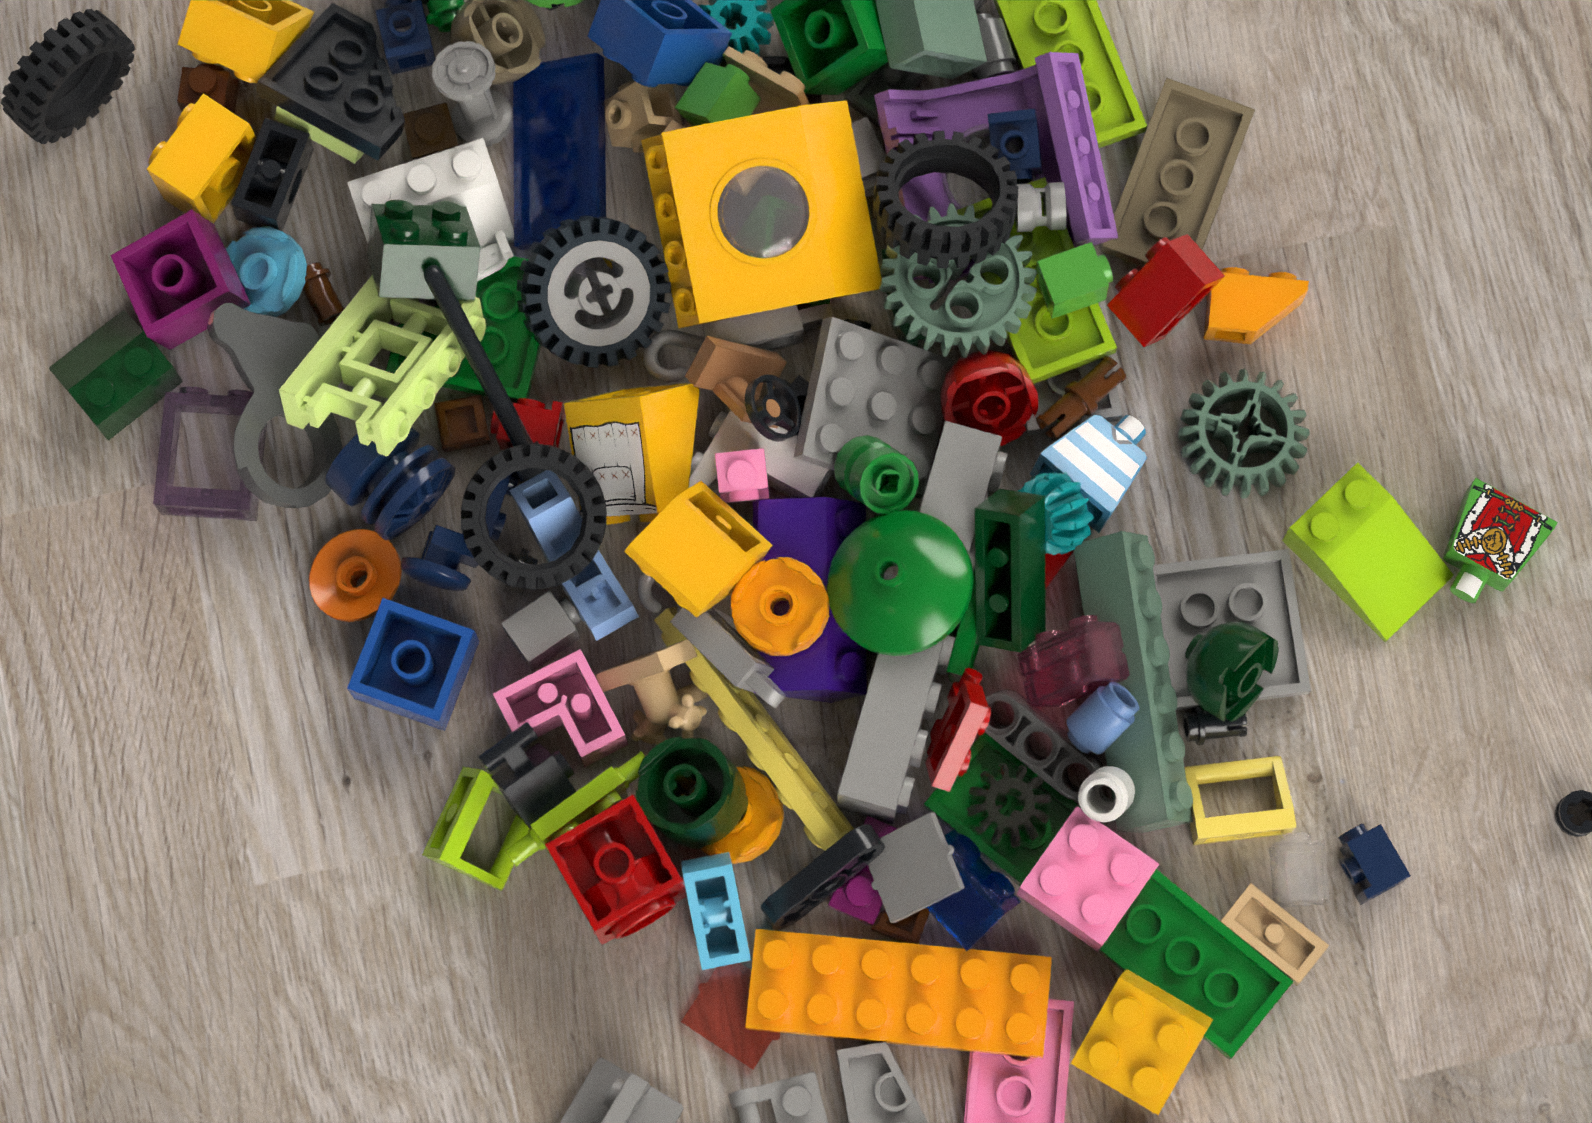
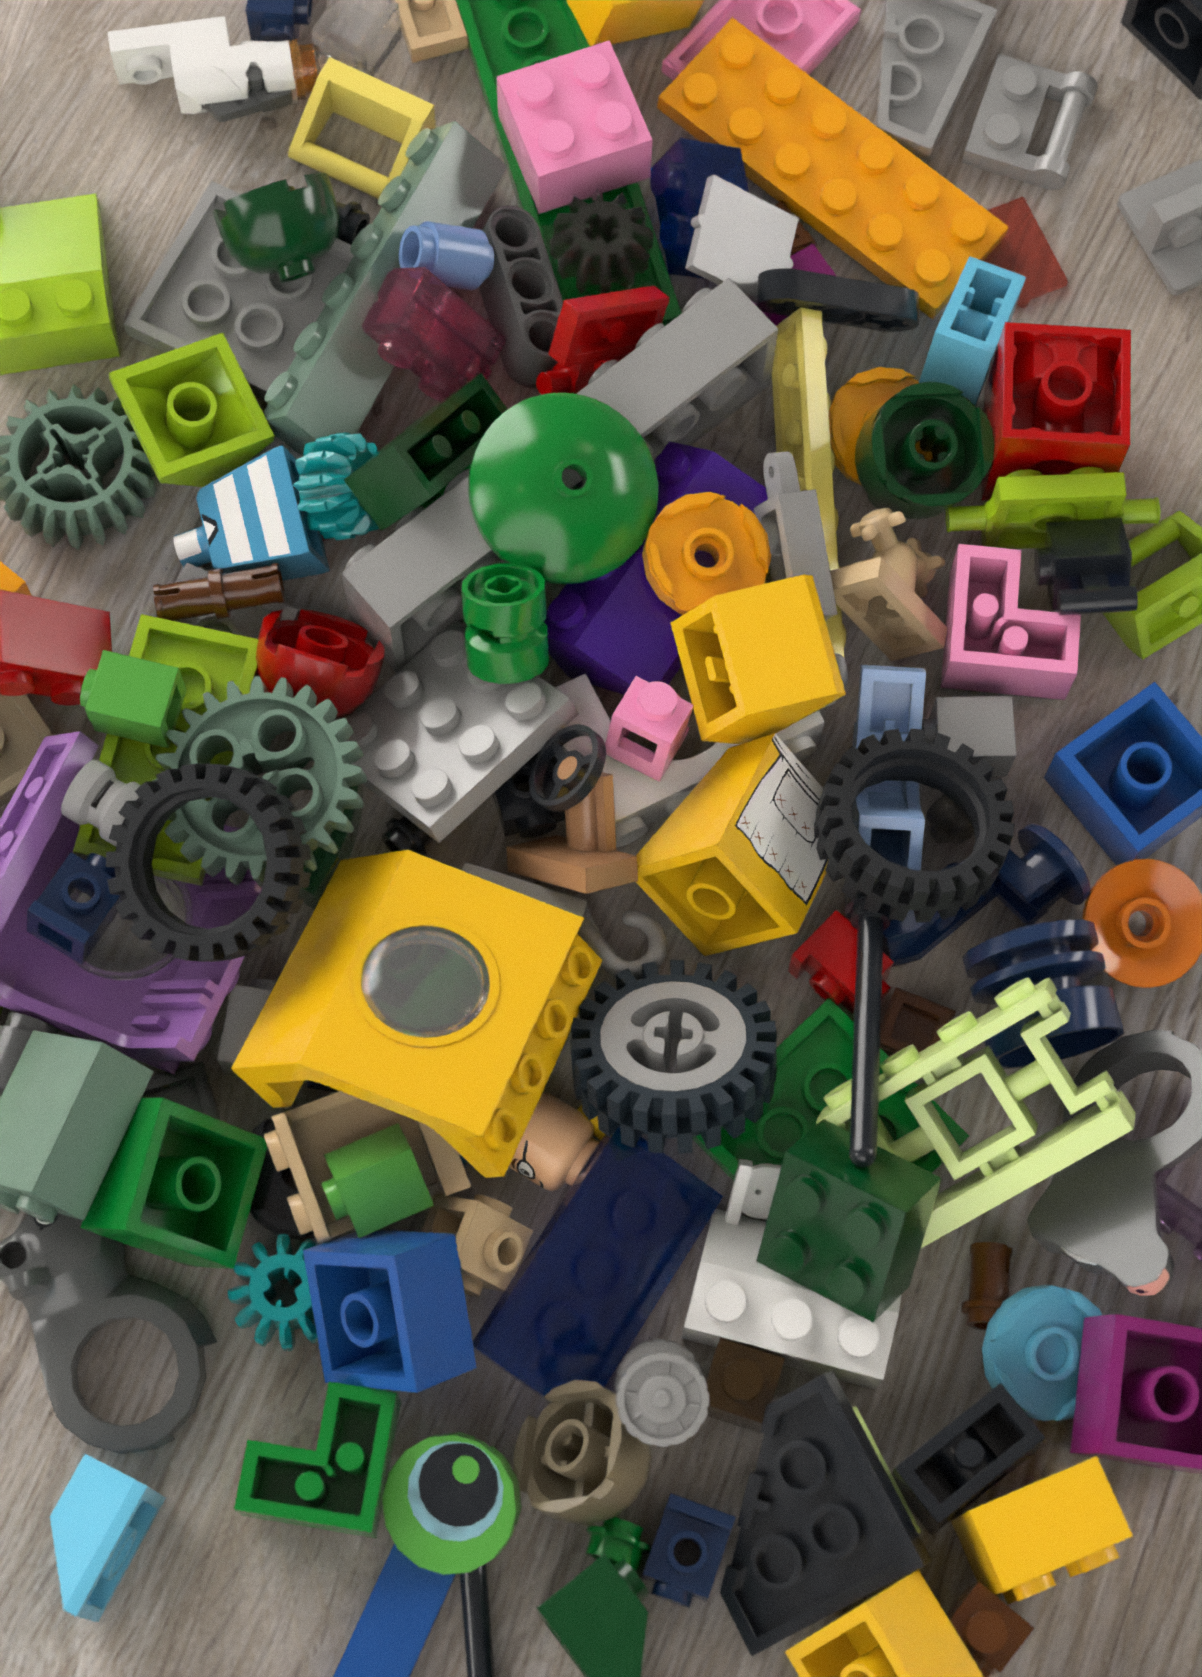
camera: 150 degrees left, 5 degrees down
(633, 205) = (554, 1144): none -> light nougat head
(1093, 801) = (499, 173): white brick -> none
(1192, 507) = (193, 412): none -> lime slope
(1367, 775) = (212, 72): none -> white plate

